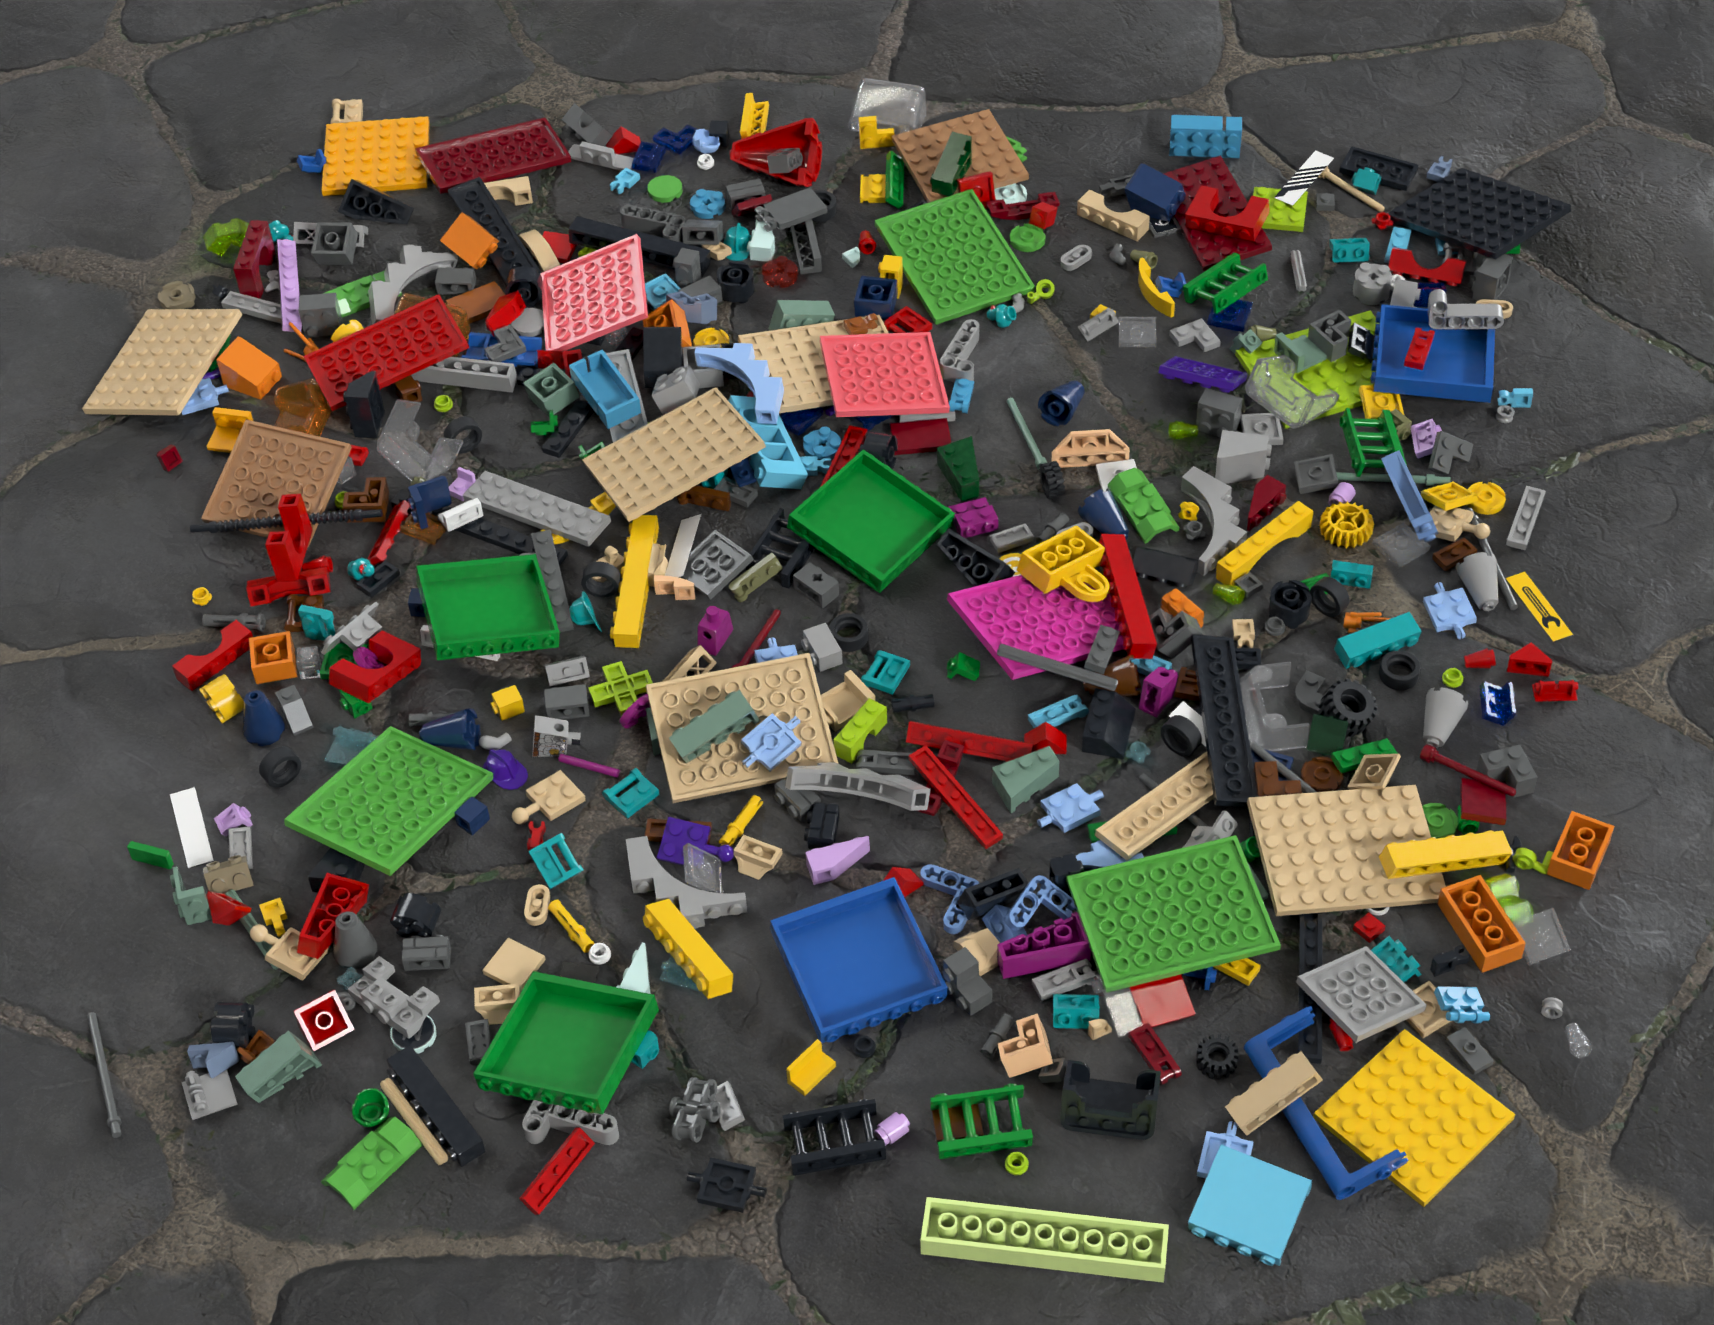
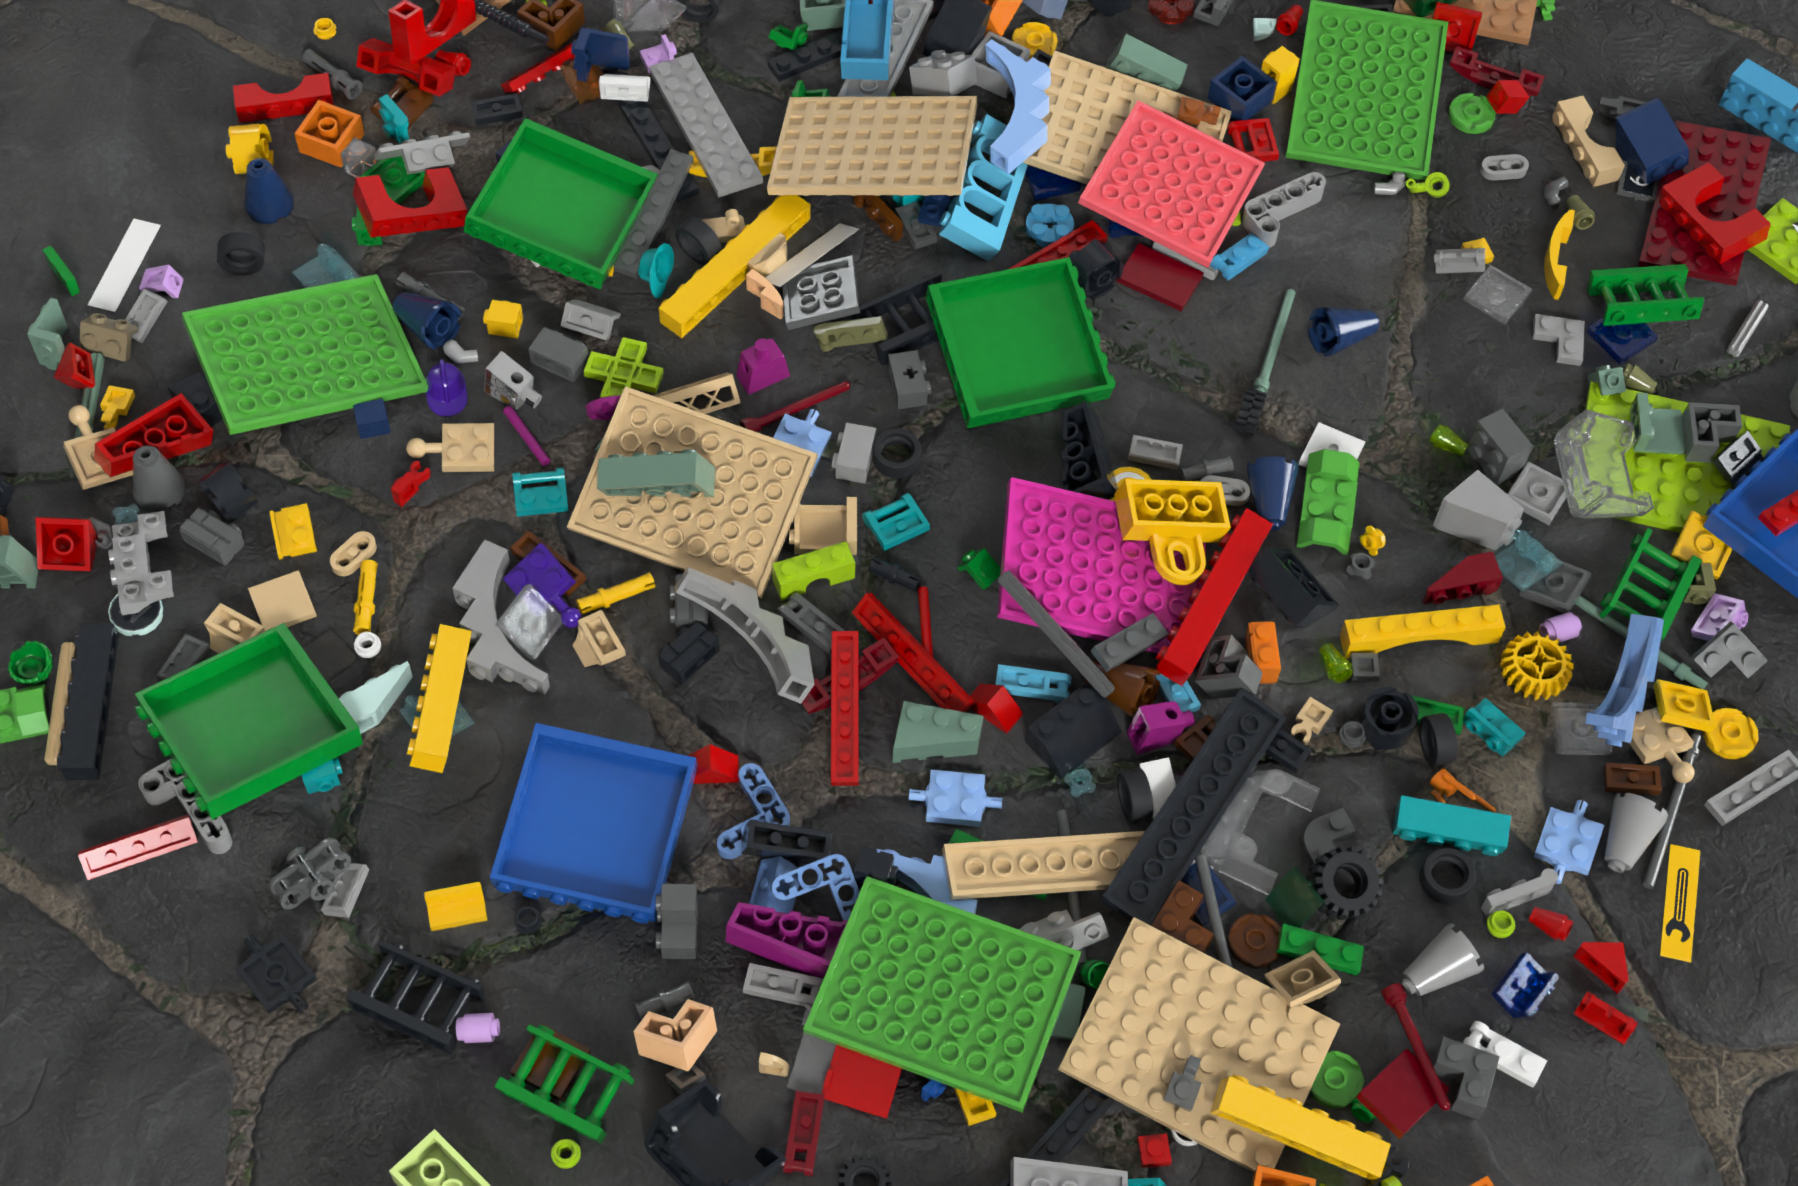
camera: 30 degrees right, 10 degrees up
(293, 710) = (306, 200): slope -> none
(360, 568) = (487, 88): teal animal -> none
(366, 658) = (407, 190): magenta tile -> none
(479, 917) = (293, 531): none -> yellow plate
(549, 864) = (395, 518): teal plate -> none
(771, 742) = (704, 527): light blue plate -> none
(813, 465) = (1018, 241): medium azure plate -> none
(833, 860) = (667, 696): lavender slope -> none
(953, 716) = (925, 622): none -> red bar
(960, 467) = (1169, 337): dark green wedge -> none
(974, 517) = (1136, 403): magenta plate -> none
(982, 946) = (725, 890): tan slope -> none
(1002, 314) = (1363, 188): teal animal -> none
(1011, 193) = (1495, 51): light aqua tile -> none
(1074, 1010) = (765, 1027): teal bracket -> none
(1090, 448) = (1320, 401): light nougat wedge -> none
(1173, 287) = (1580, 262): blue bracket -> none
(1203, 373) = (1519, 388): dark purple plate -> none
(1215, 501) = (1387, 594): light grey arch -> none
(1290, 469) = (1526, 561): none -> clear light blue hinge
(1359, 874) = (1183, 1088): none -> dark grey plate
(1448, 653) = (1519, 892): none -> light grey plate
(1532, 745) = (1513, 1058): none -> white plate

